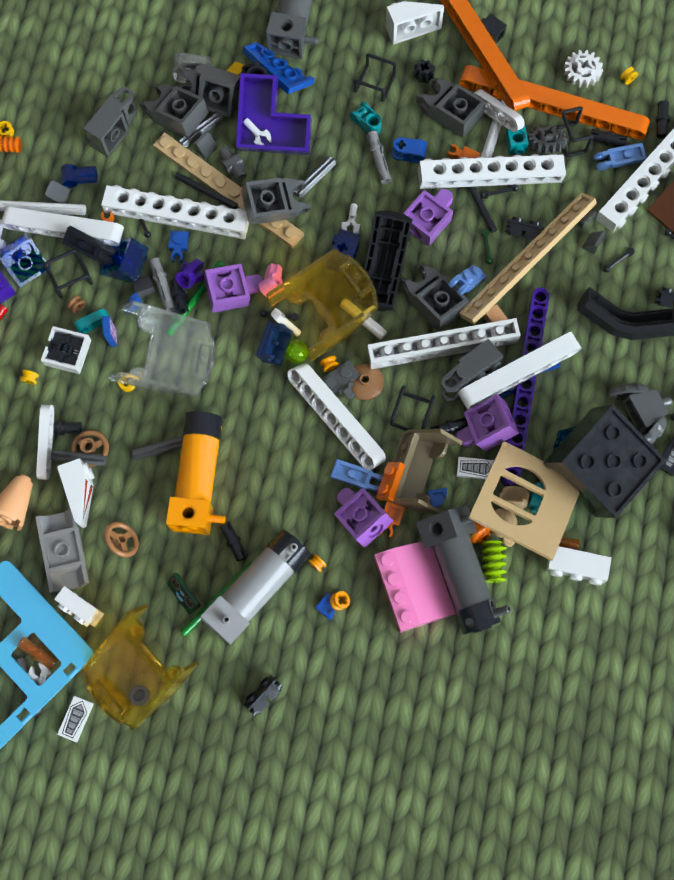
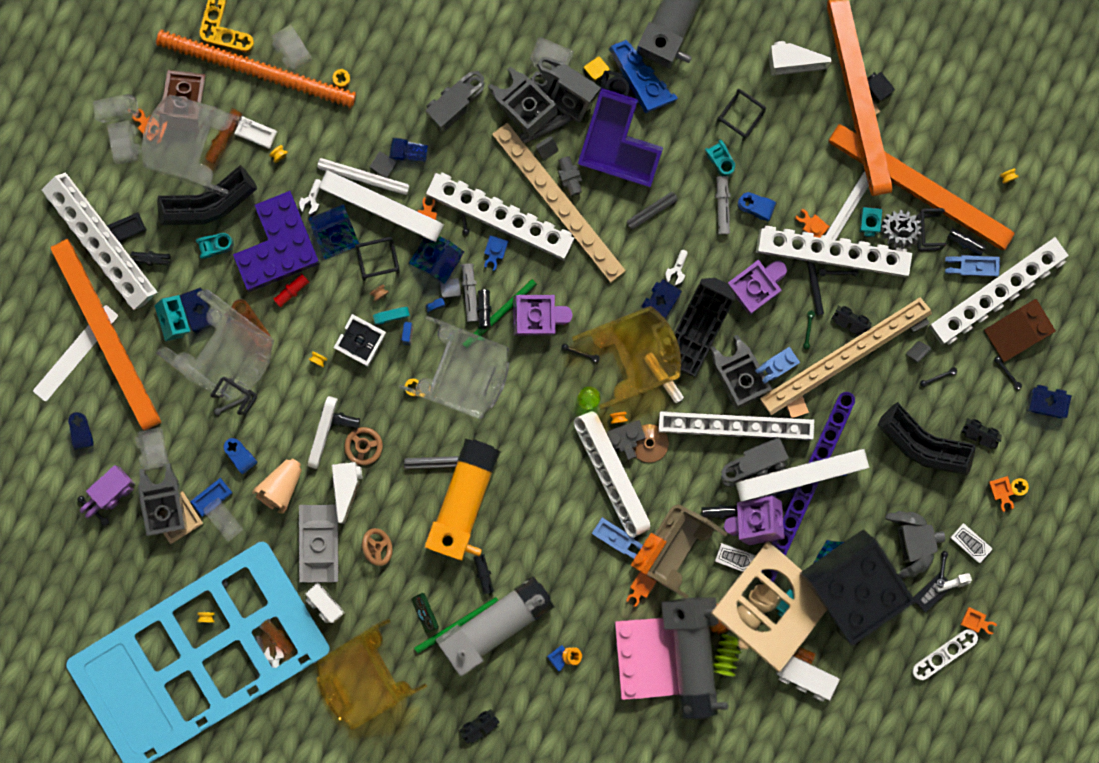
camera: 10 degrees right, 10 degrees up
(75, 719) = (300, 706): tile -> none
(88, 245) = (405, 238): black hinge -> none
(92, 459) = (351, 455): dark grey axle -> none
(140, 696) = (365, 700): dark grey tile -> none
(190, 274) = (497, 292): dark purple rock -> none
(205, 190) = (538, 201): black bar -> none
(257, 132) = (603, 150): white bar -> none
(272, 278) = (581, 320): bright pink piece -> none
(273, 200) = (608, 232): dark grey brick -> none
(274, 343) = (568, 384): dark blue hinge -> none
(281, 319) = (580, 359): white bar -> none
(317, 563) = (558, 614): light orange bush -> none
(361, 515) = (612, 580): medium lavender brick -> none
(402, 392) = (684, 464): black piece -> none
(424, 71) = (795, 124): black gear -> none
(437, 496) = (690, 578): blue tile -> none
(452, 106) = (813, 162): dark grey brick -> none
(511, 119) = (857, 186): white beam -> none
(583, 68) = (968, 162): white gear -> none
(662, 119) = (1029, 234): black pin -> none

